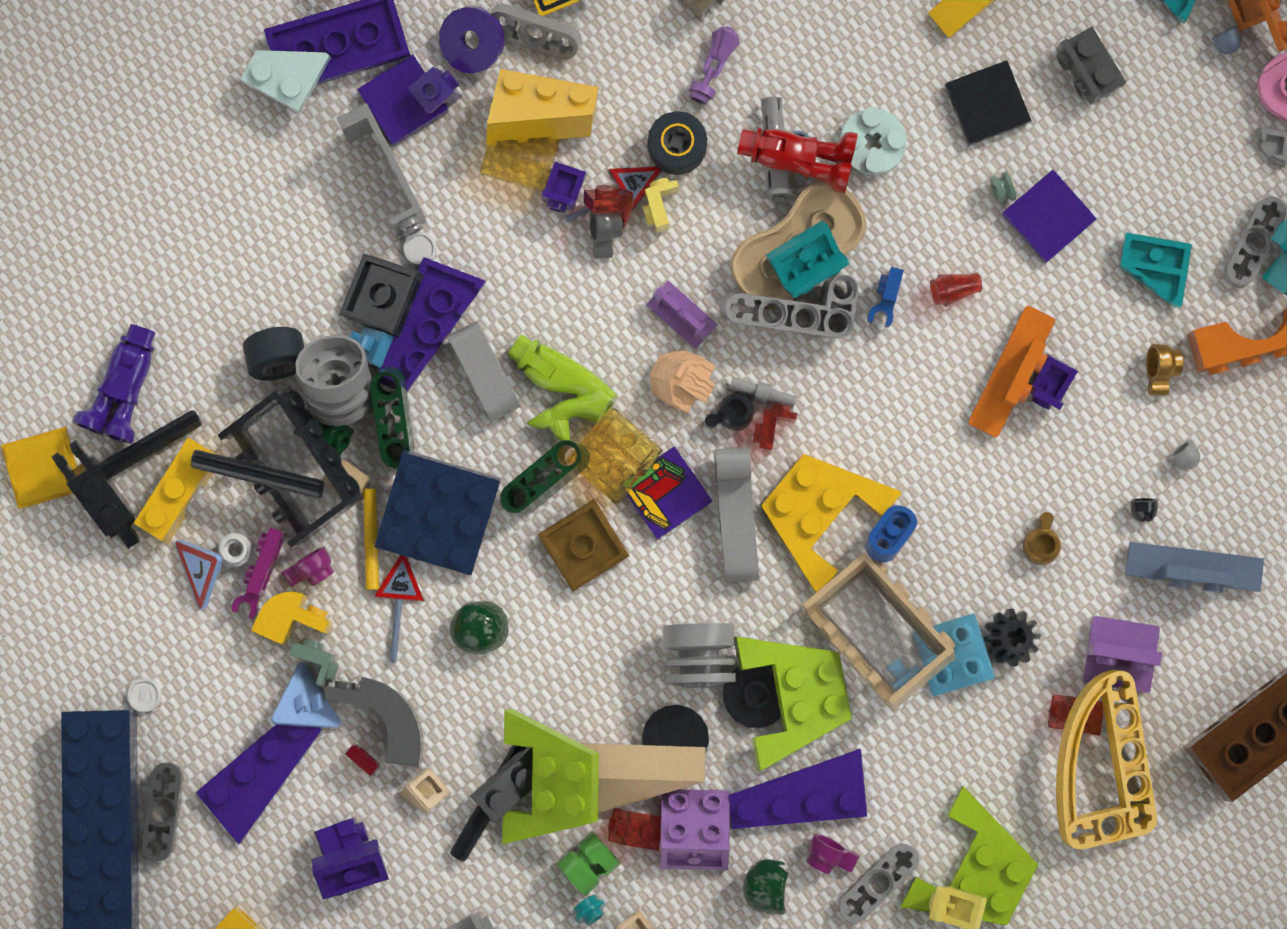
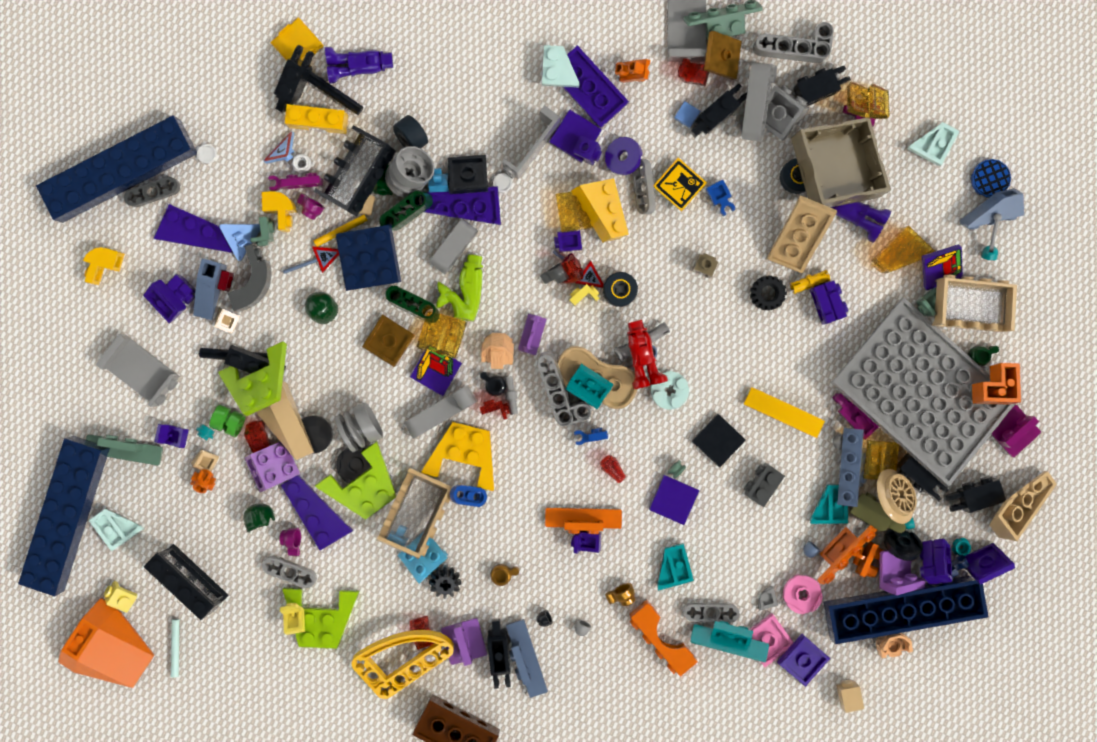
camera: 60 degrees right, 5 degrees up
(257, 474) = (340, 154): black axle -> none
(362, 793) = (206, 288): none -> sand blue slope
(723, 43) = (683, 288): medium lavender piece -> none
(1166, 604) = (499, 653): none -> black hinge

